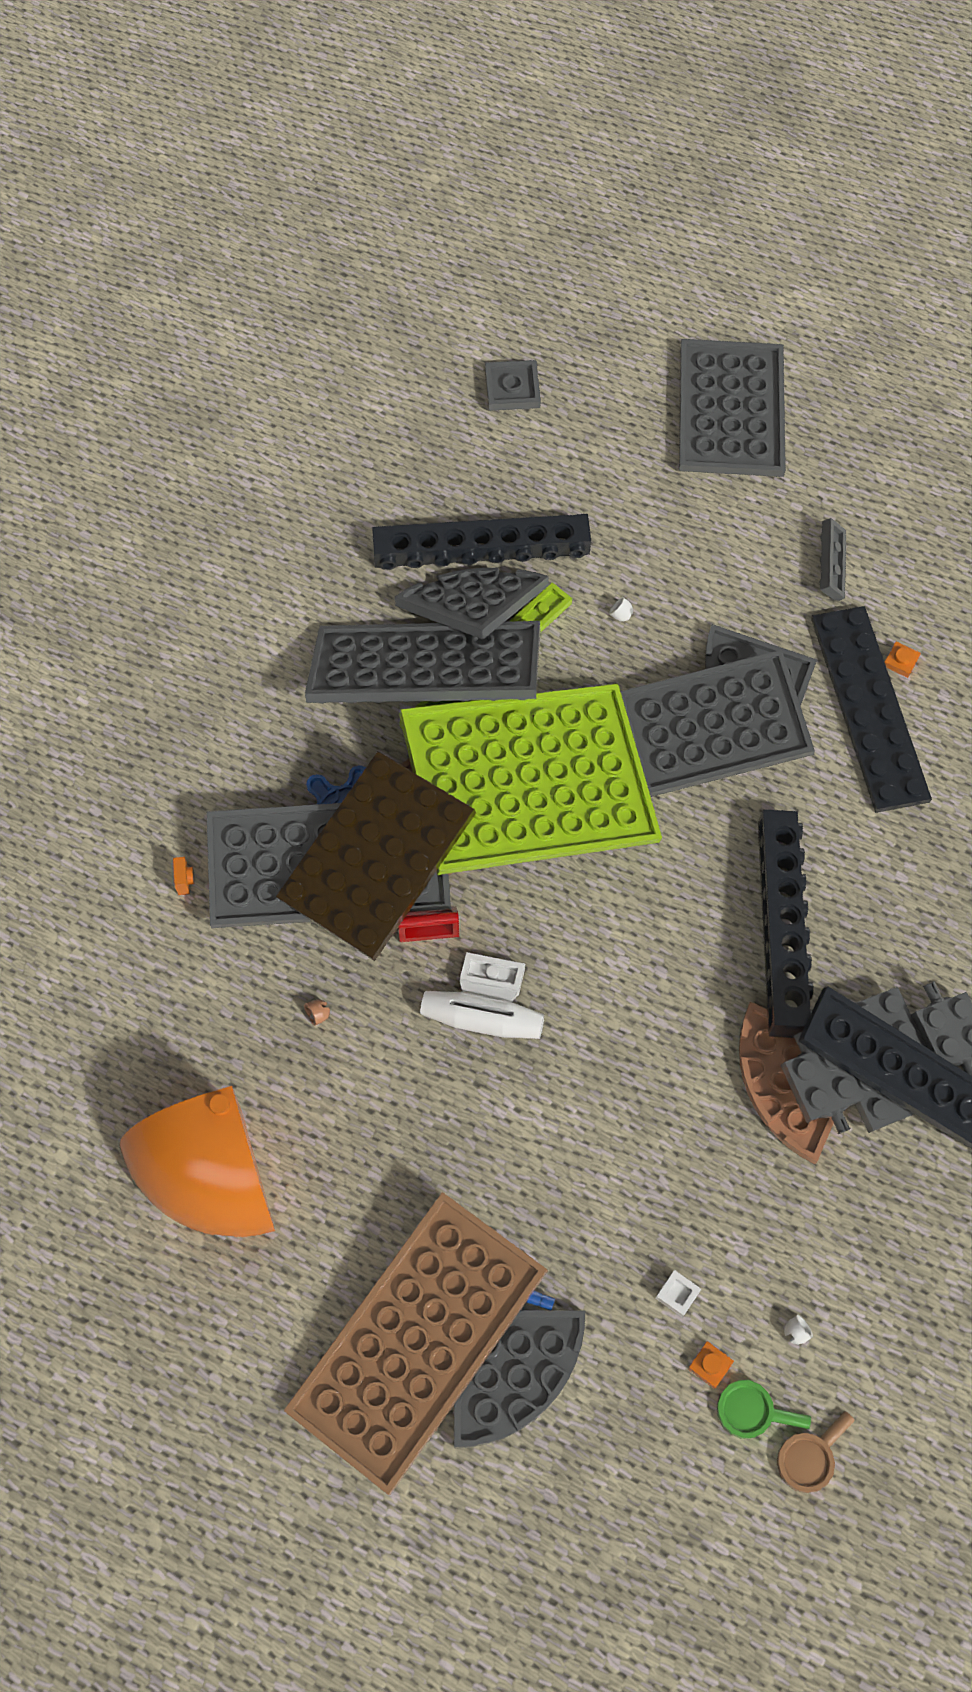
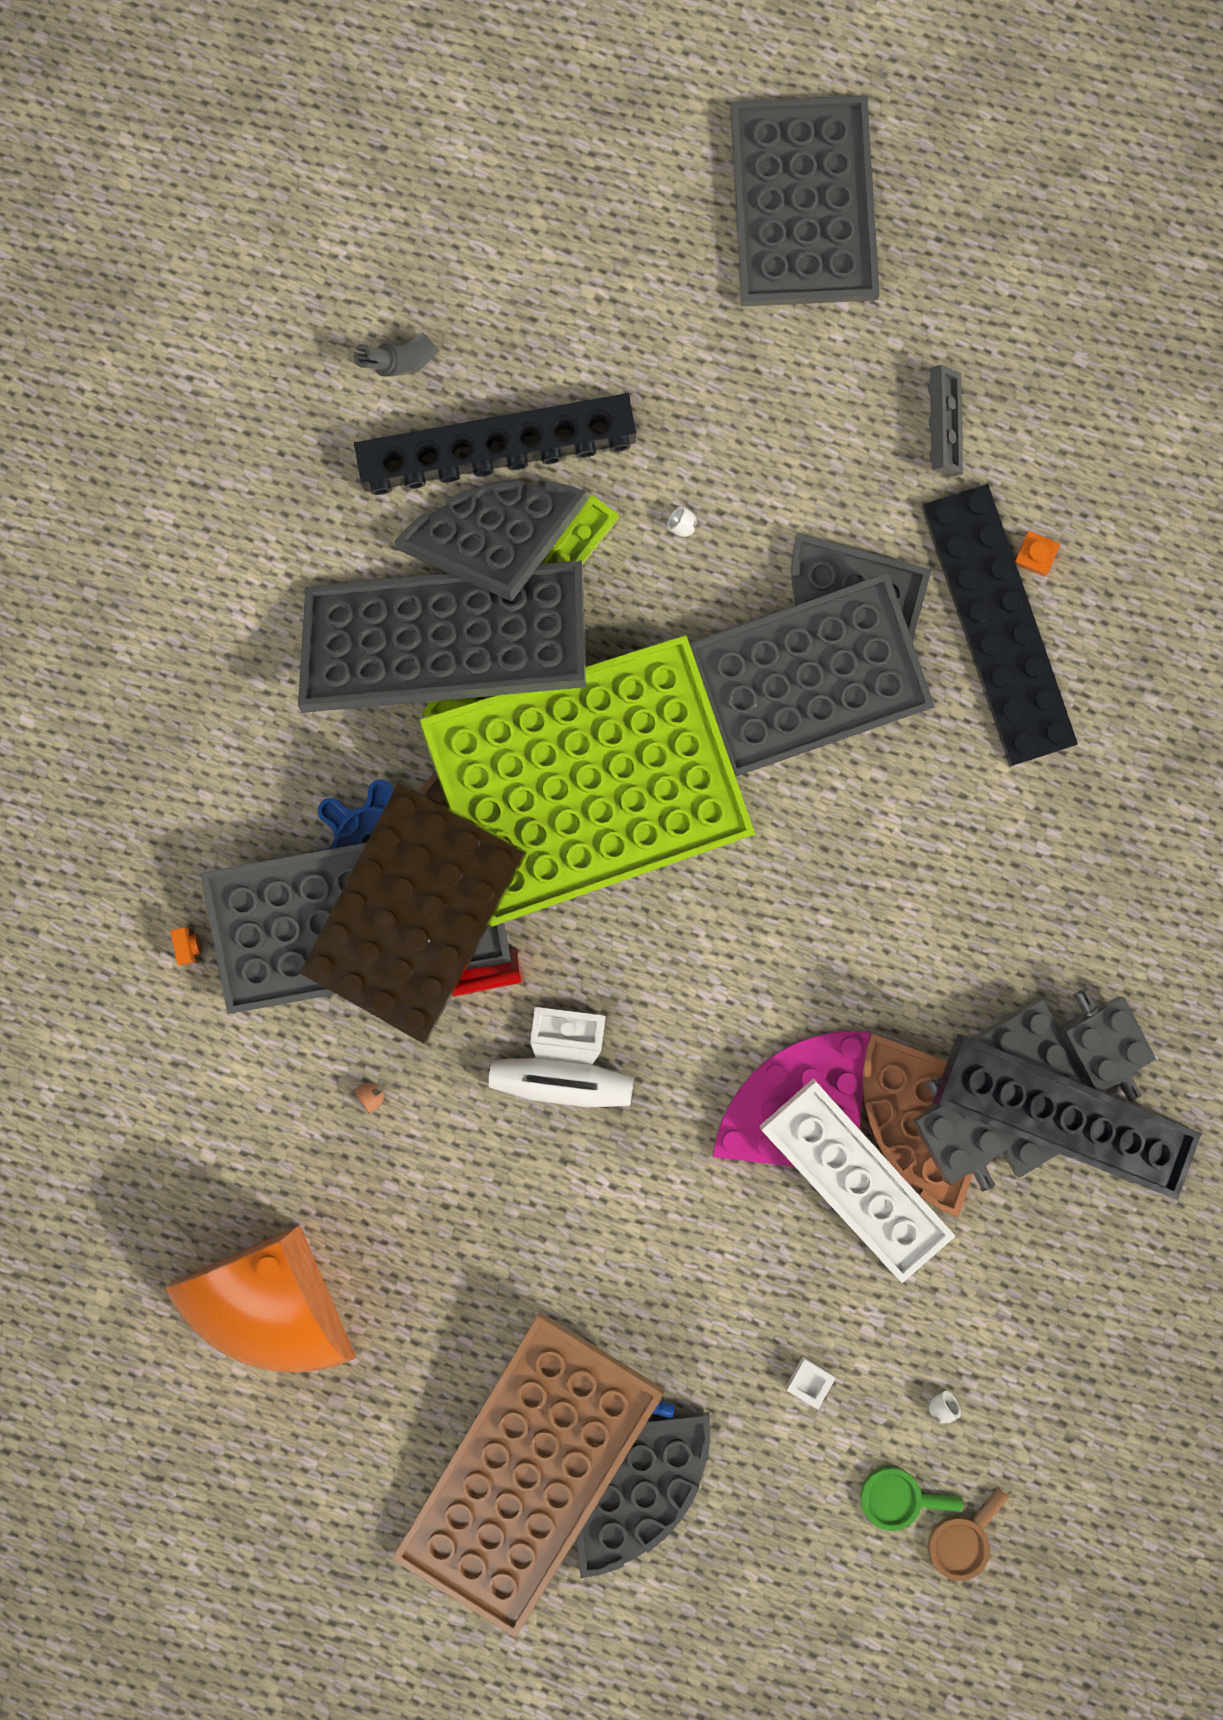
camera: 10 degrees left, 20 degrees up
(411, 479) = (397, 359): none -> dark grey arm
(512, 385) = (513, 198): dark grey plate -> none
(684, 1059) = (833, 1062): none -> dark pink plate
(710, 1365) = (850, 1454): orange plate -> none
(731, 1118) = (857, 1180): none -> white plate
(784, 827) = (909, 807): black brick -> none

